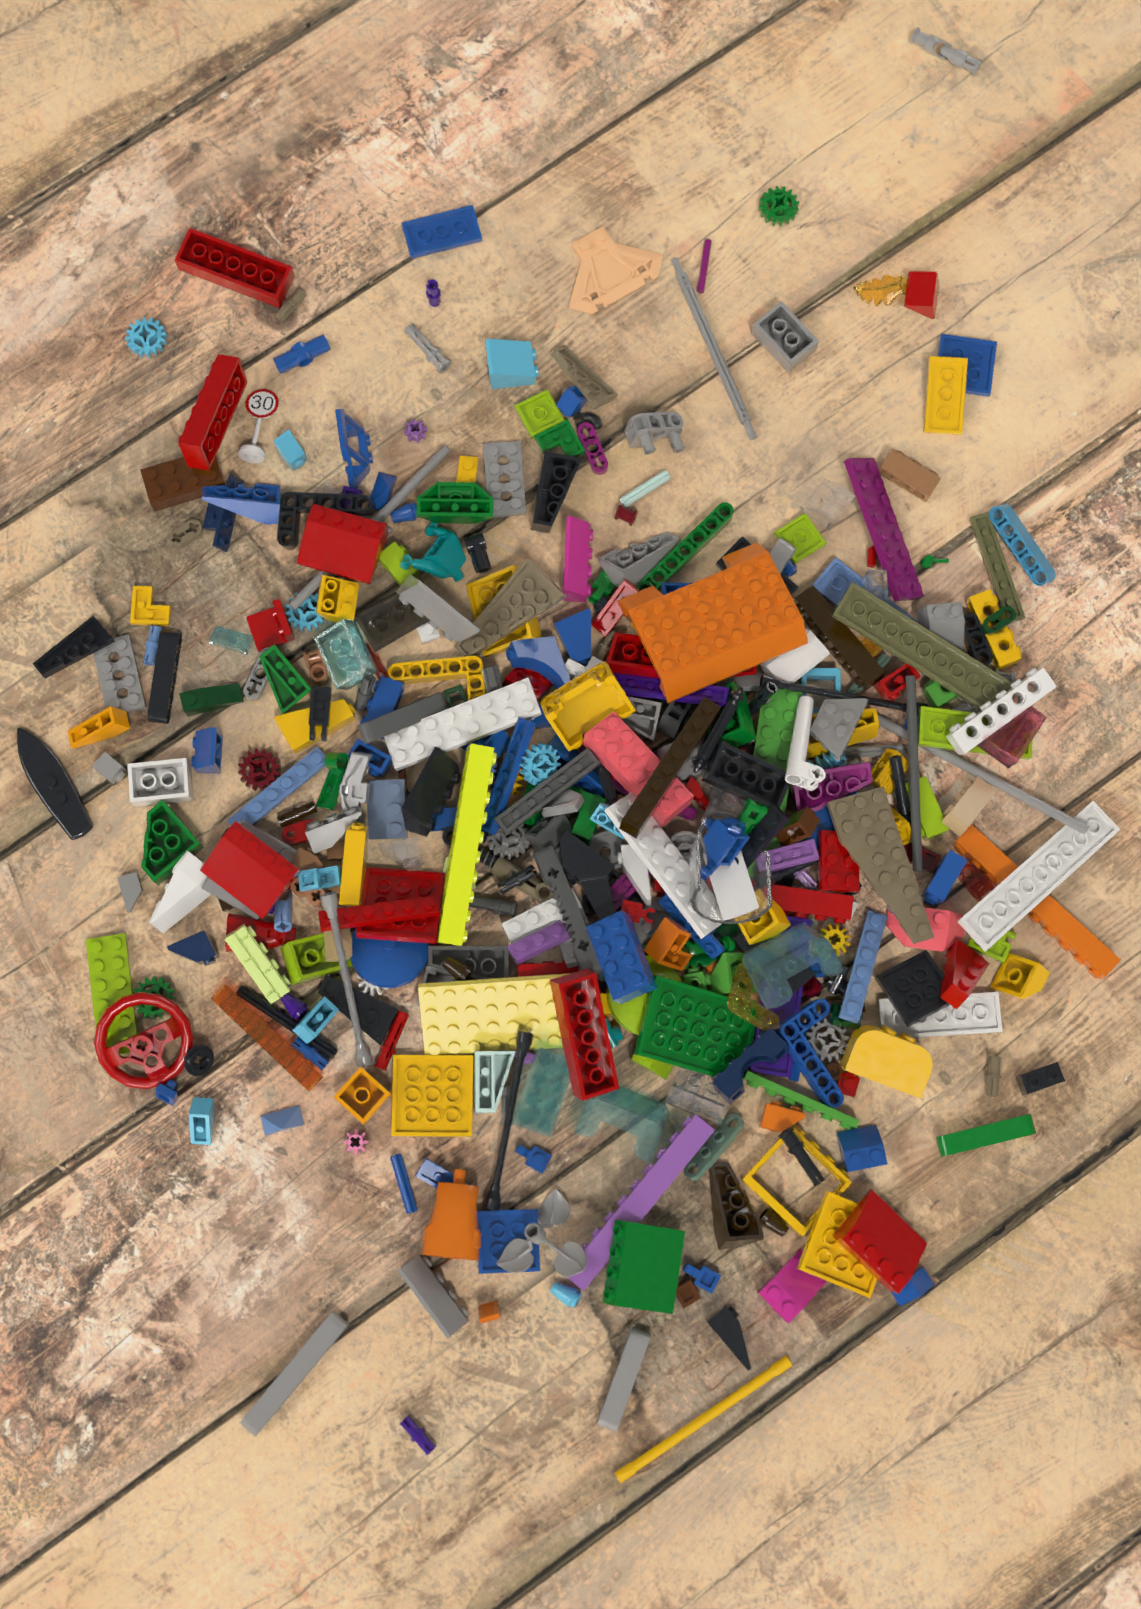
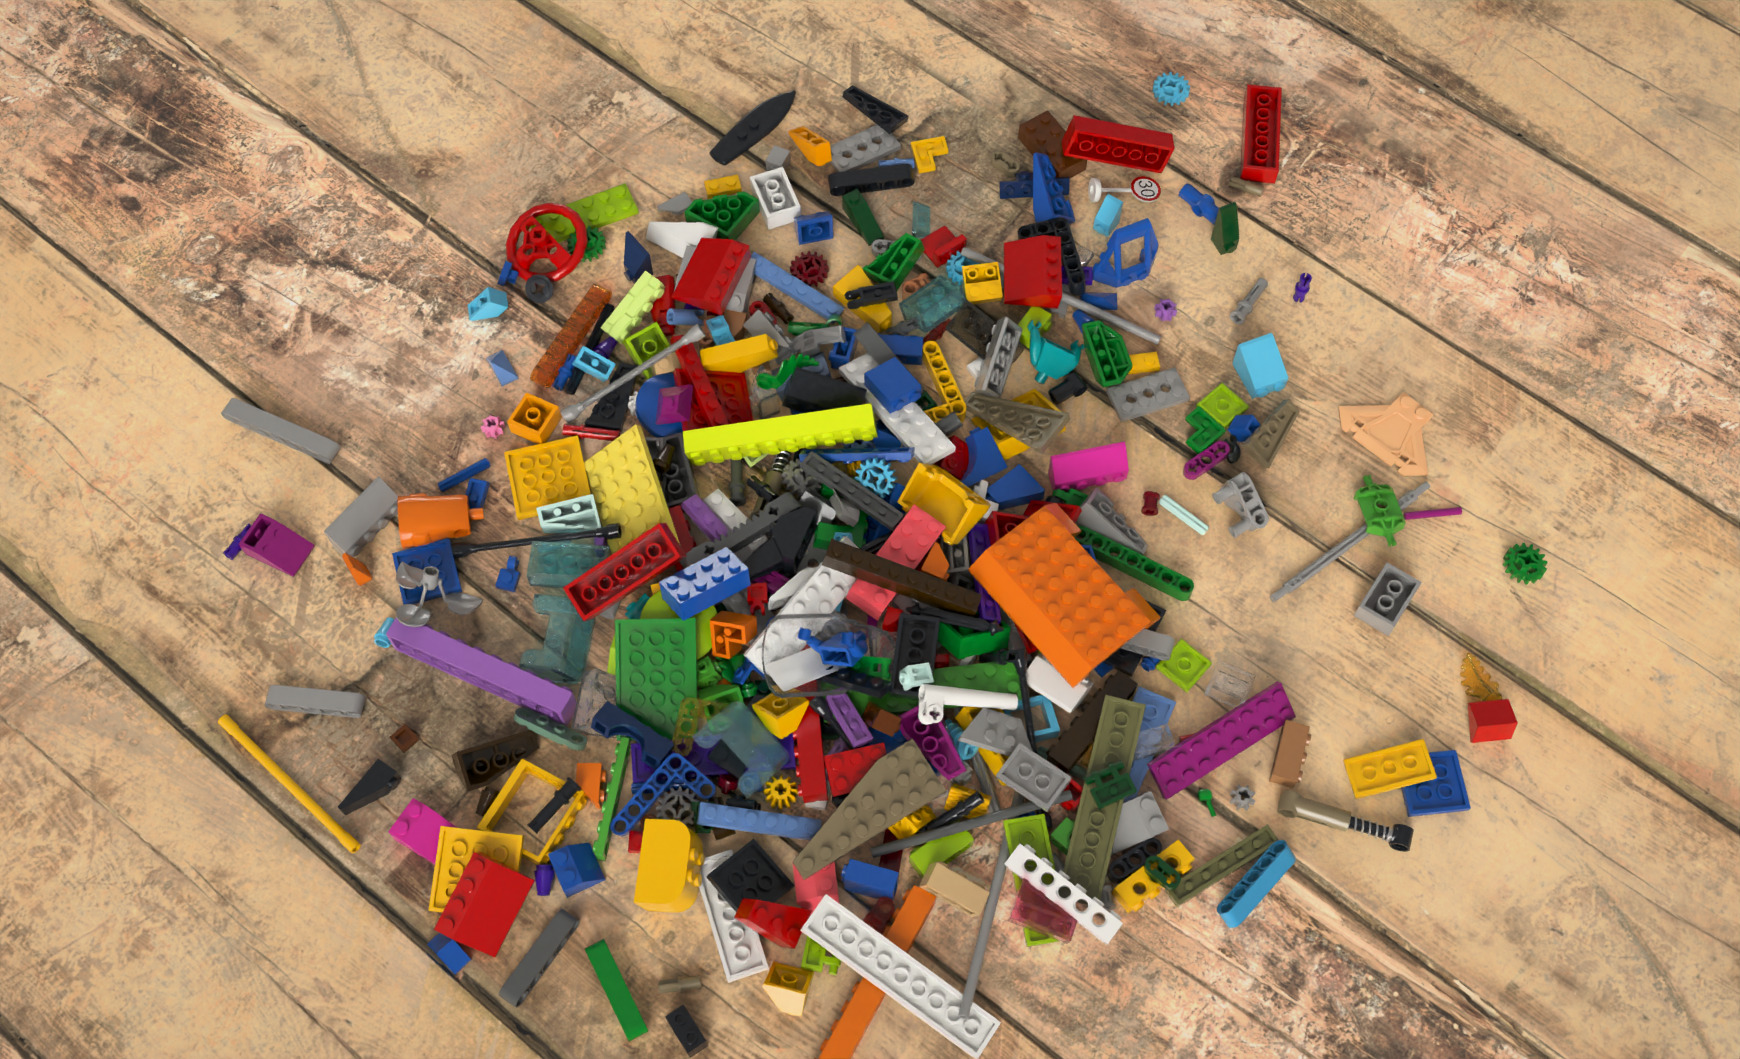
camera: 75 degrees right, 15 degrees down
(121, 835) = (722, 186): none -> yellow plate
(347, 342) = (1226, 229): none -> dark green slope
(399, 944) = (674, 404): none -> magenta slope
(402, 843) = (769, 381): none -> green plant
(437, 1394) = (276, 545): none -> magenta slope
(441, 232) = (1367, 284): blue plate -> none
(442, 719) = (892, 385): none -> blue brick
(554, 482) = (1151, 432): black wedge -> none
(643, 1267) = (418, 685): green panel -> none
(654, 734) = (936, 563): none -> orange slope
(704, 1278) = (422, 751): blue plate -> none
(705, 315) = (1380, 520): none -> bright green plate
(774, 780) = (915, 675): none -> light aqua bracket
(864, 1182) = (544, 877): none -> dark purple cone
(890, 703) = (1033, 777): none -> light grey plate
(923, 635) = (1113, 790): none -> dark green plate
(939, 1200) = (539, 958): none -> dark grey beam
(943, 533) = (1239, 803): none -> light grey gear
(981, 452) = (1294, 805): none -> piece

